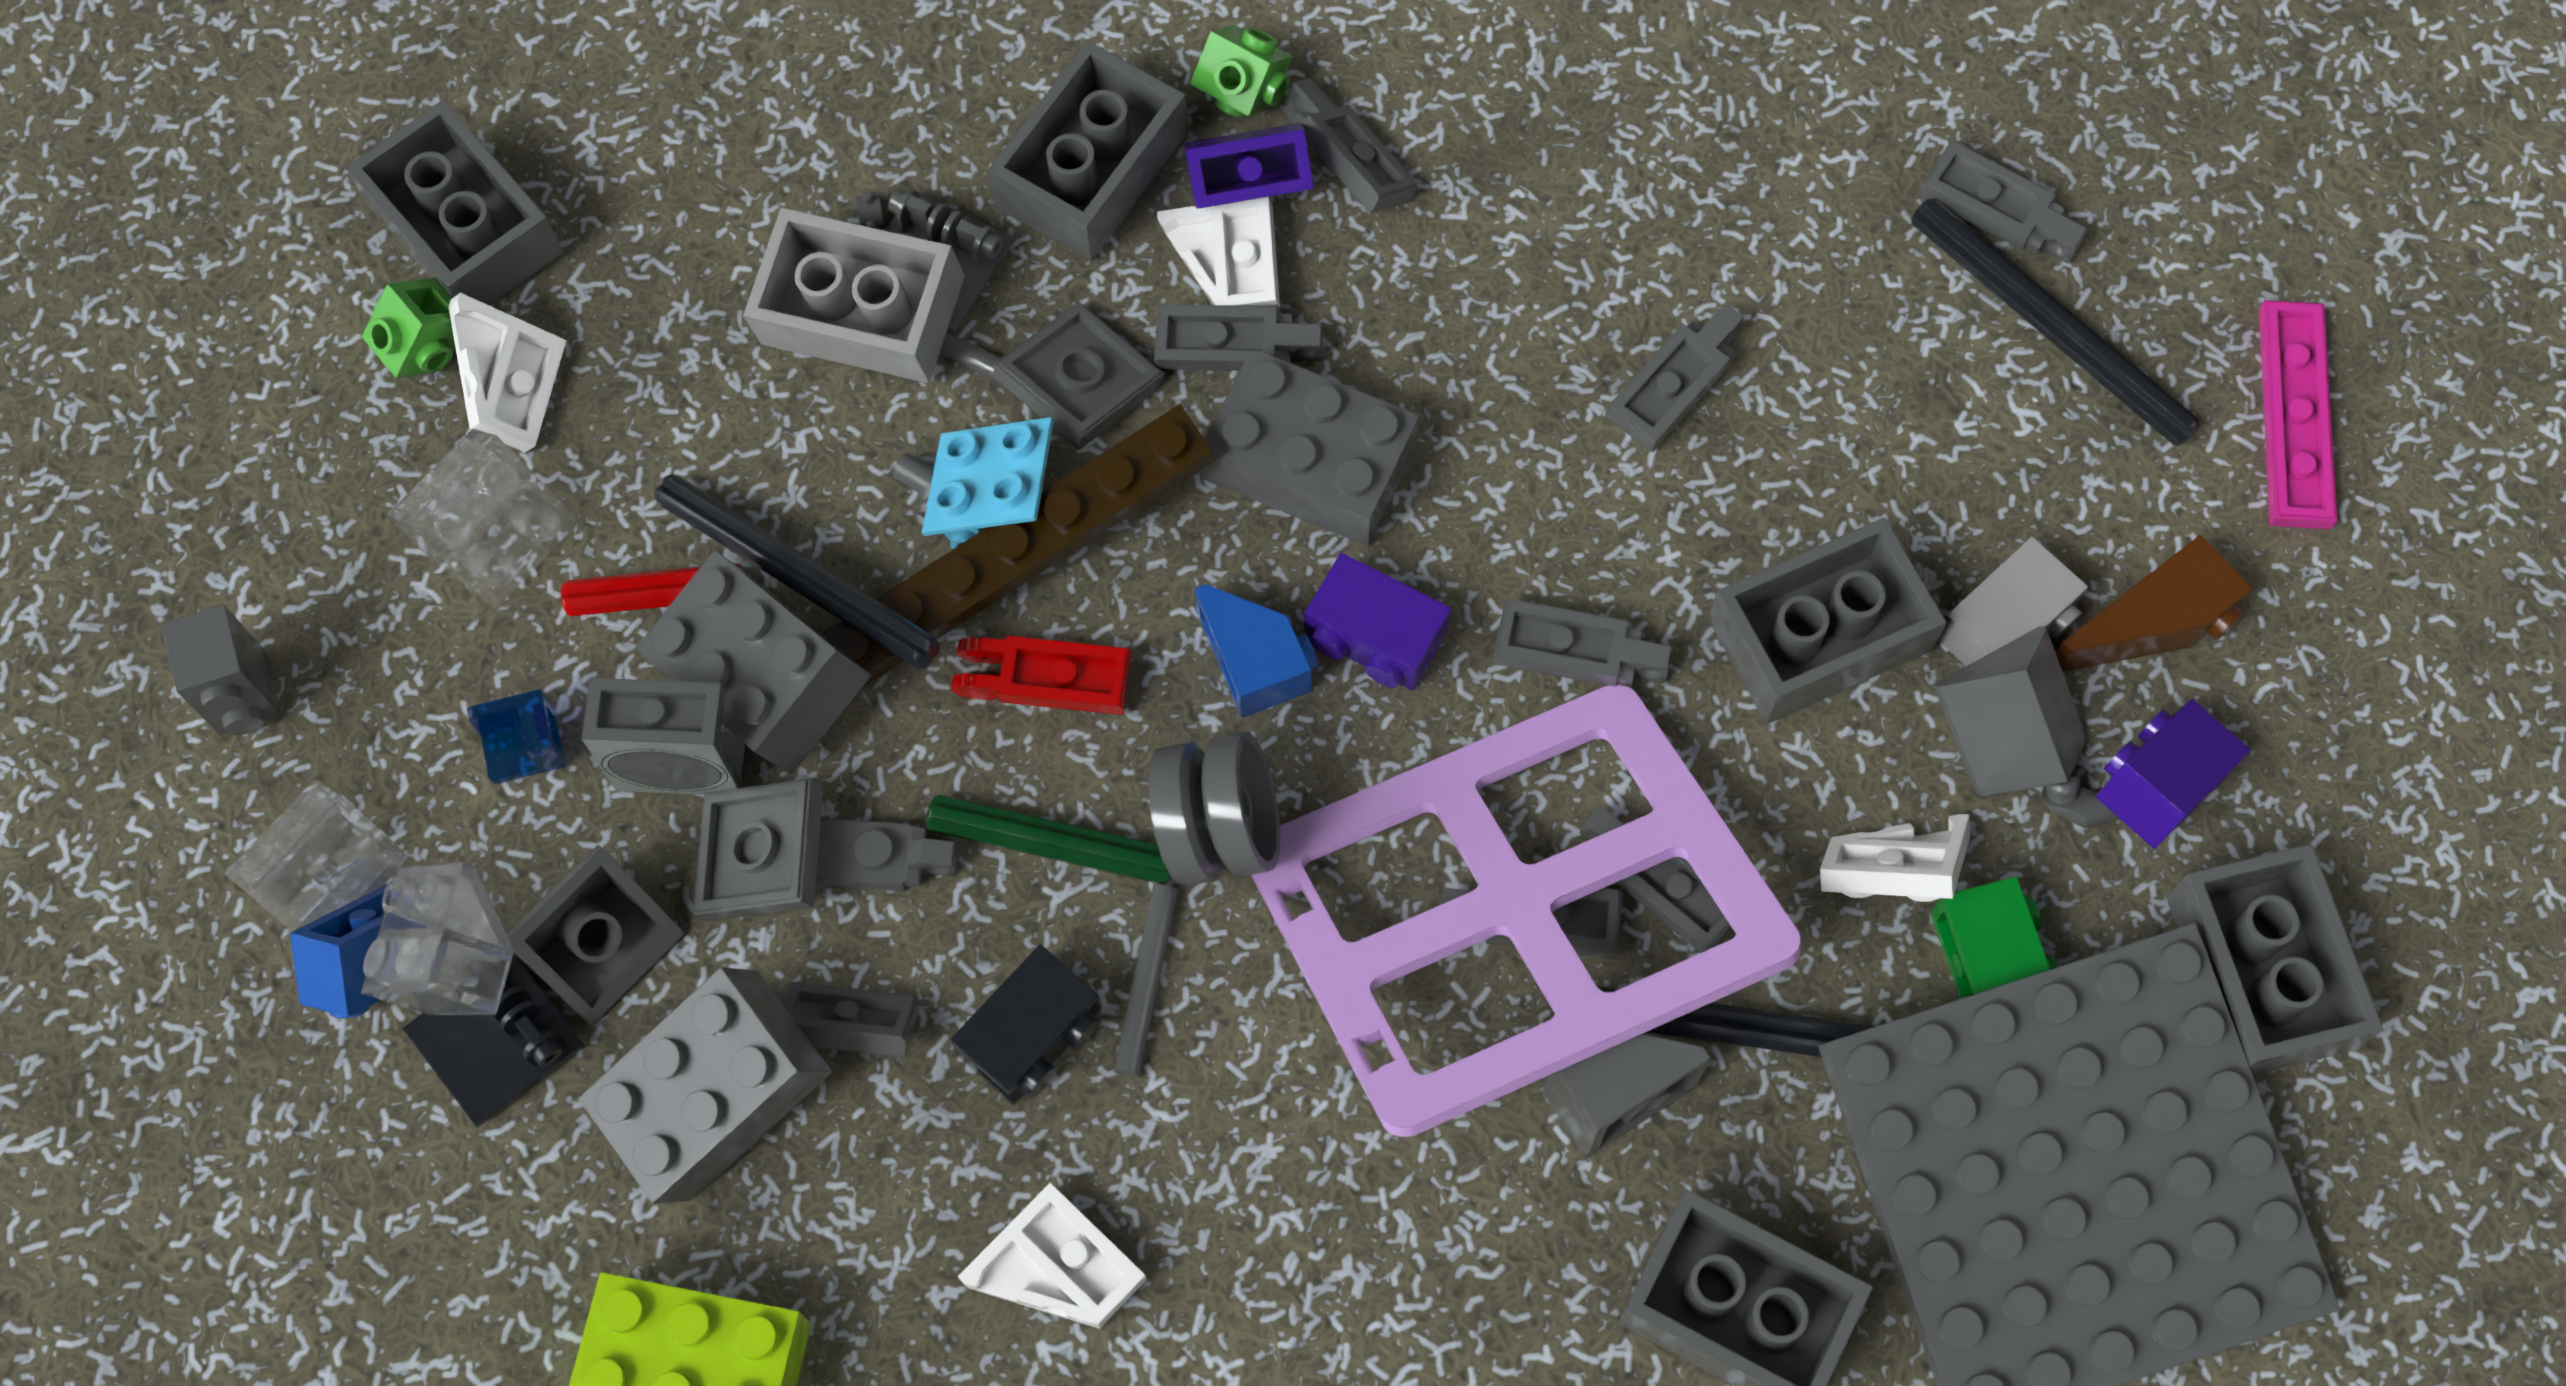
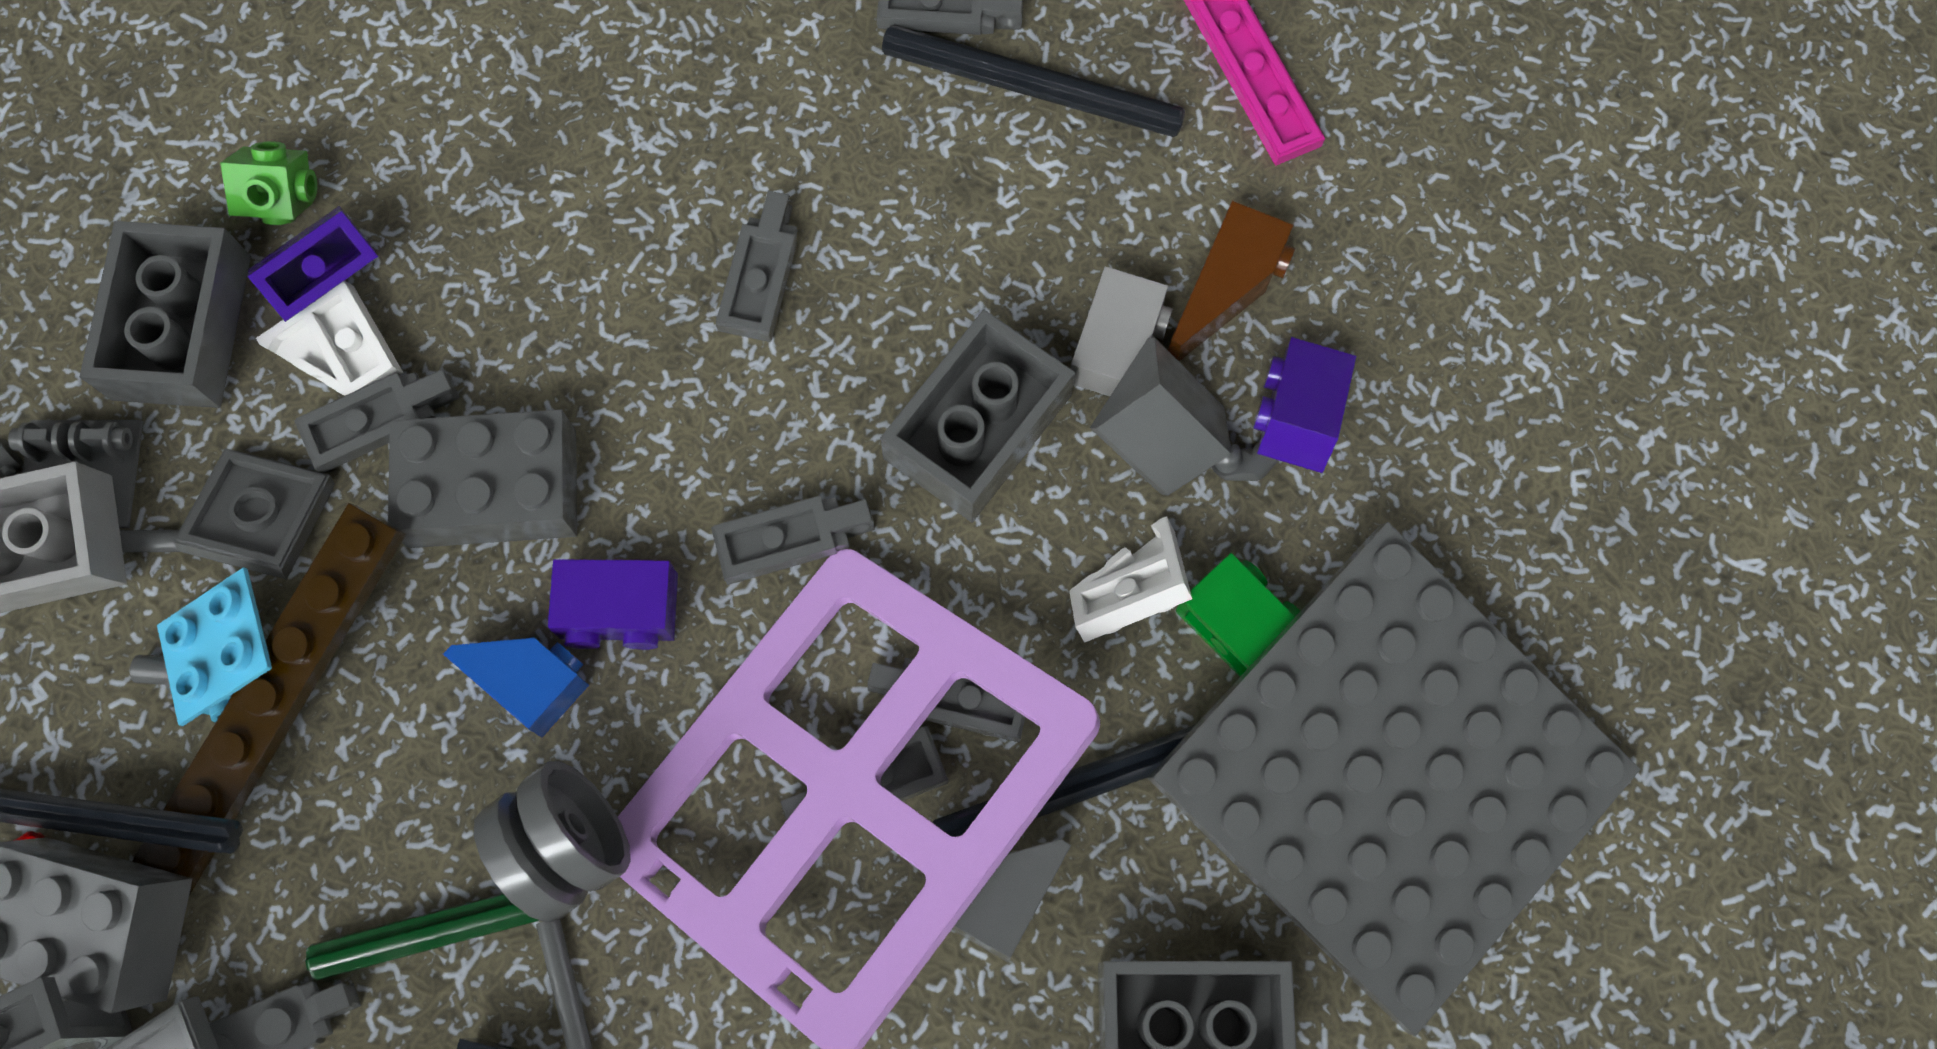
camera: 30 degrees left, 5 degrees up
(1046, 673) = (355, 788): red hinge -> none
(1349, 148) = (394, 206): dark grey hinge -> none
(2279, 957) = (1459, 512): dark grey brick -> none

